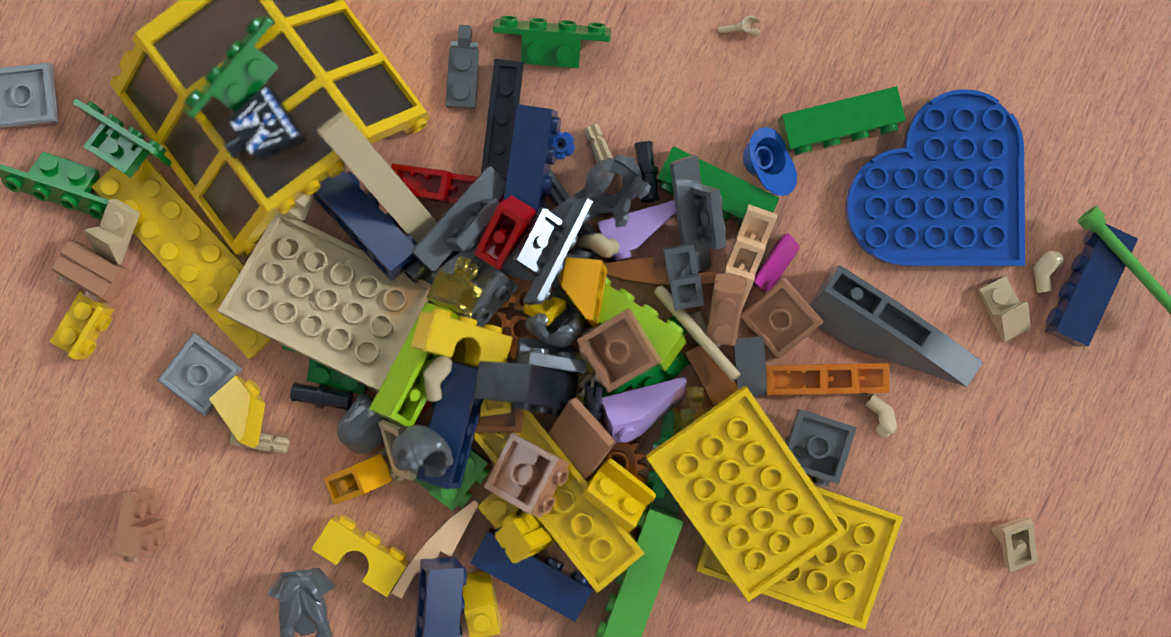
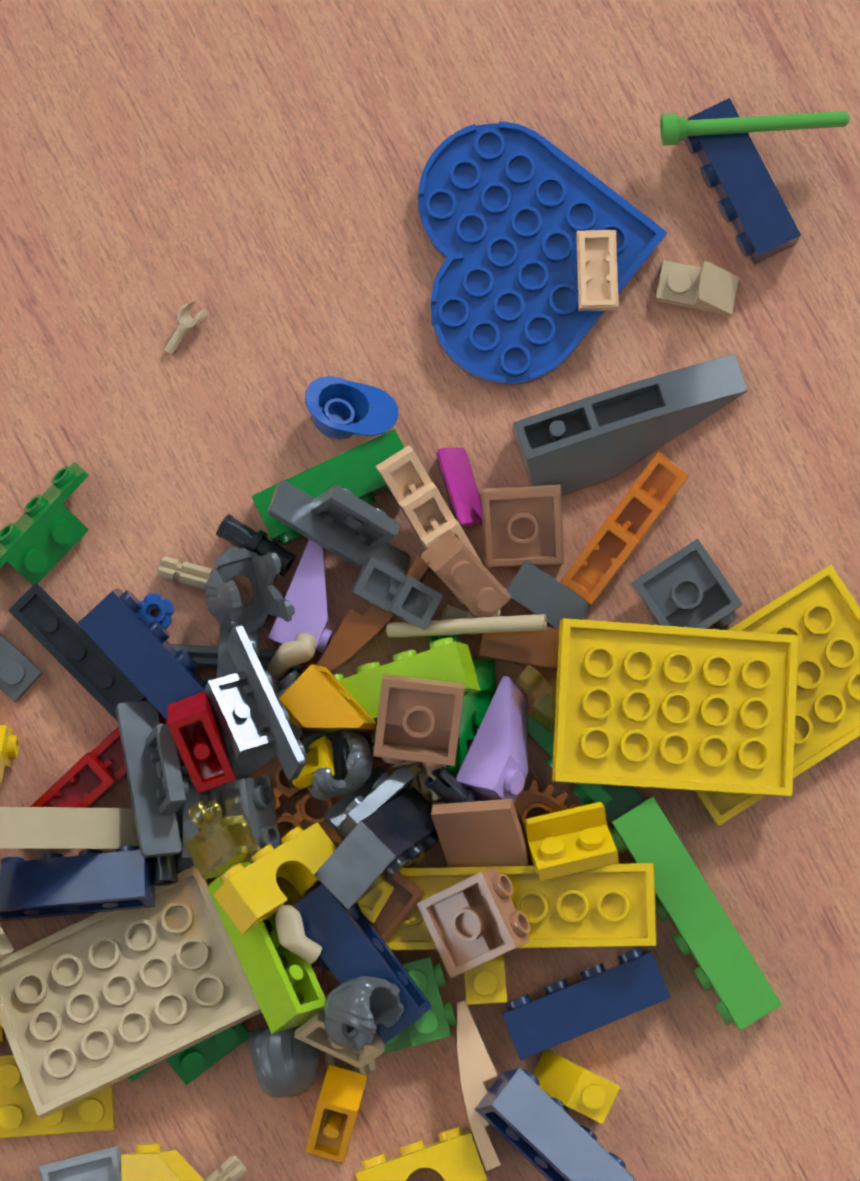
camera: 50 degrees left, 5 degrees down
(321, 396) = (216, 1082): black pin -> none
(523, 536) = (536, 977): yellow brick -> none
(842, 120) = (365, 301): green brick -> none
(886, 415) = (710, 497): tan arm -> none
(970, 242) = (597, 270): none -> light nougat plate
(1044, 268) = (687, 215): tan arm -> none

